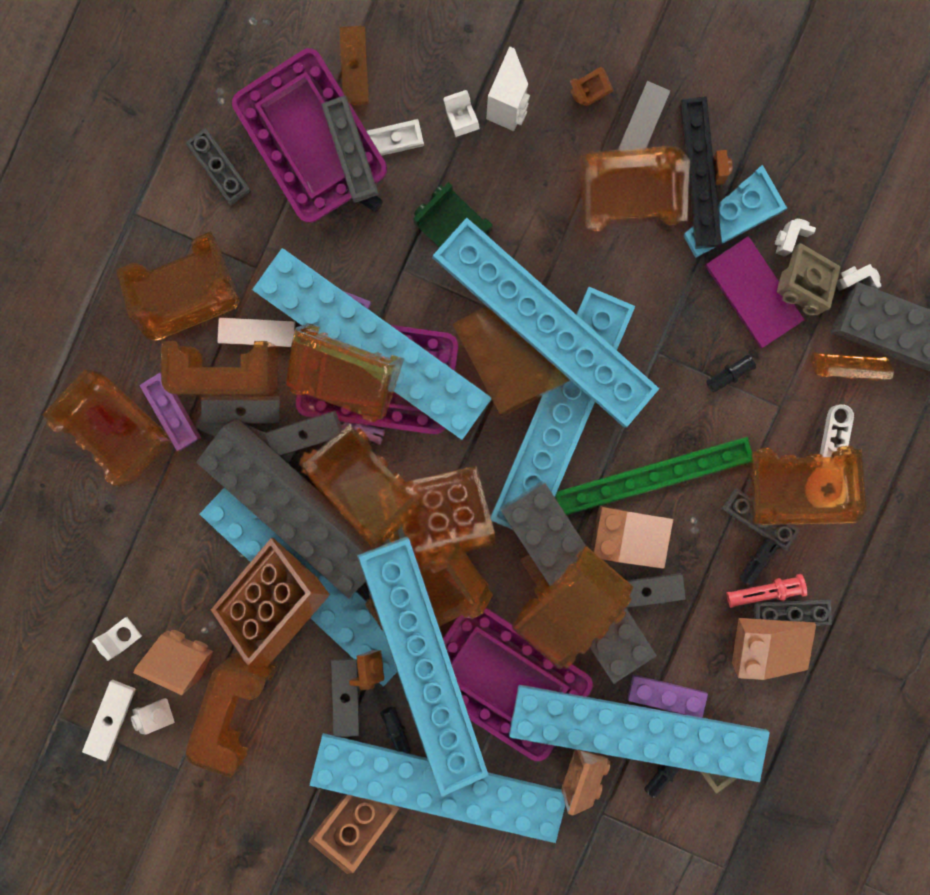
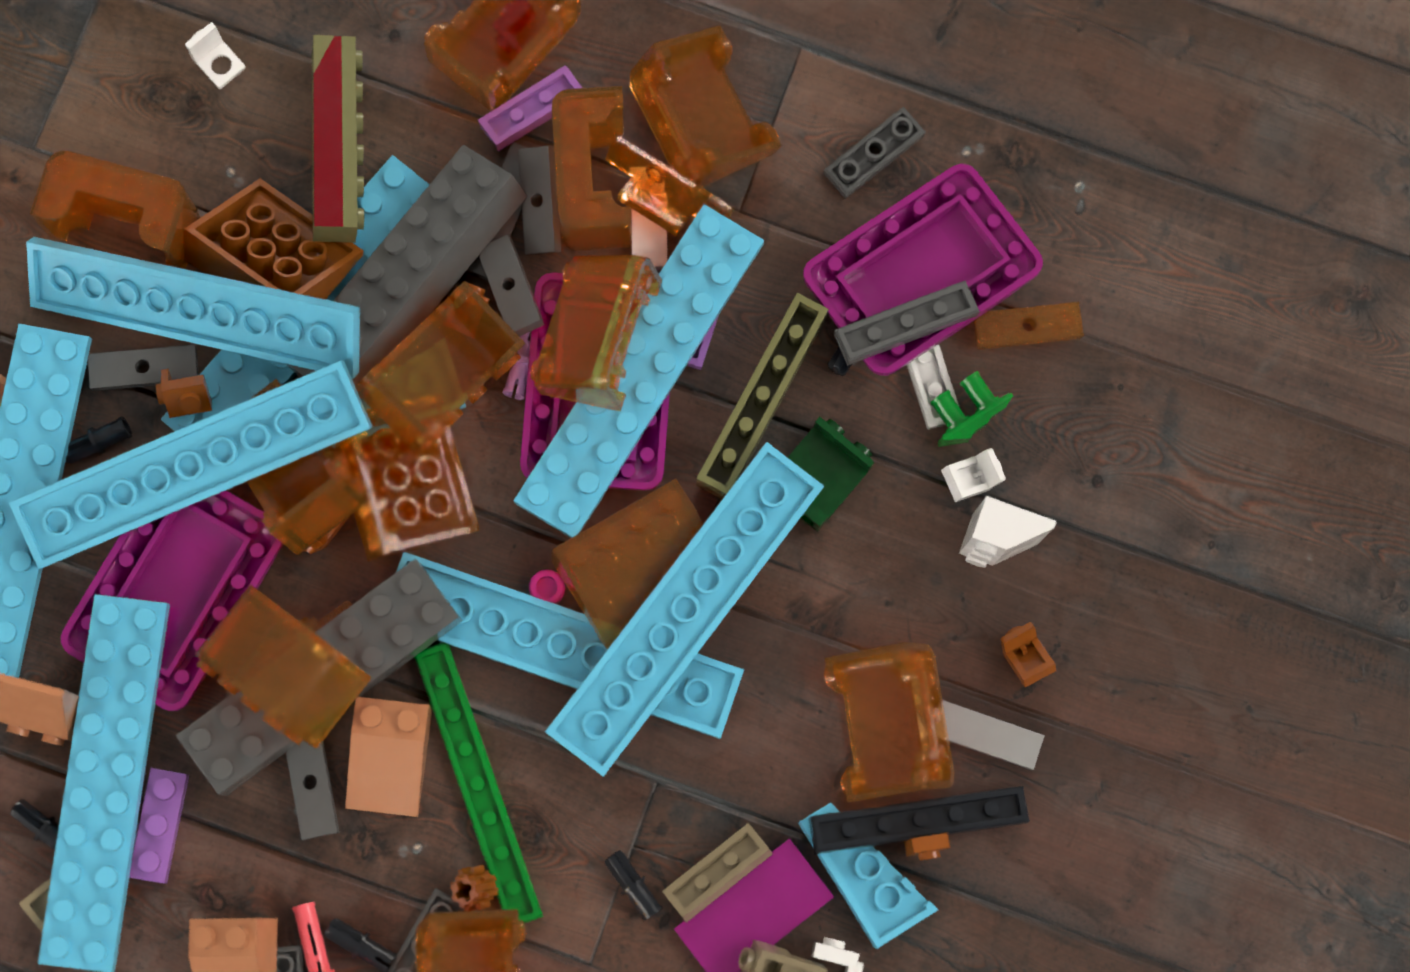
camera: 80 degrees right, 10 degrees down
(104, 733) = (84, 44): white tile -> none
(152, 717) = (107, 109): white bracket -> none
(174, 662) = (186, 132): nougat slope -> none
(185, 554) = (335, 139): none -> brick
(239, 321) = (659, 190): none -> clear orange bracket
(307, 660) = (192, 306): none -> medium azure plate
(395, 258) = (762, 396): none -> olive brick
(426, 115) = (963, 427): none -> green connector
(519, 421) = (547, 586): none -> dark pink tile
(727, 315) = (717, 872): none -> dark tan plate
(727, 482) = (474, 888): none -> dark orange gear

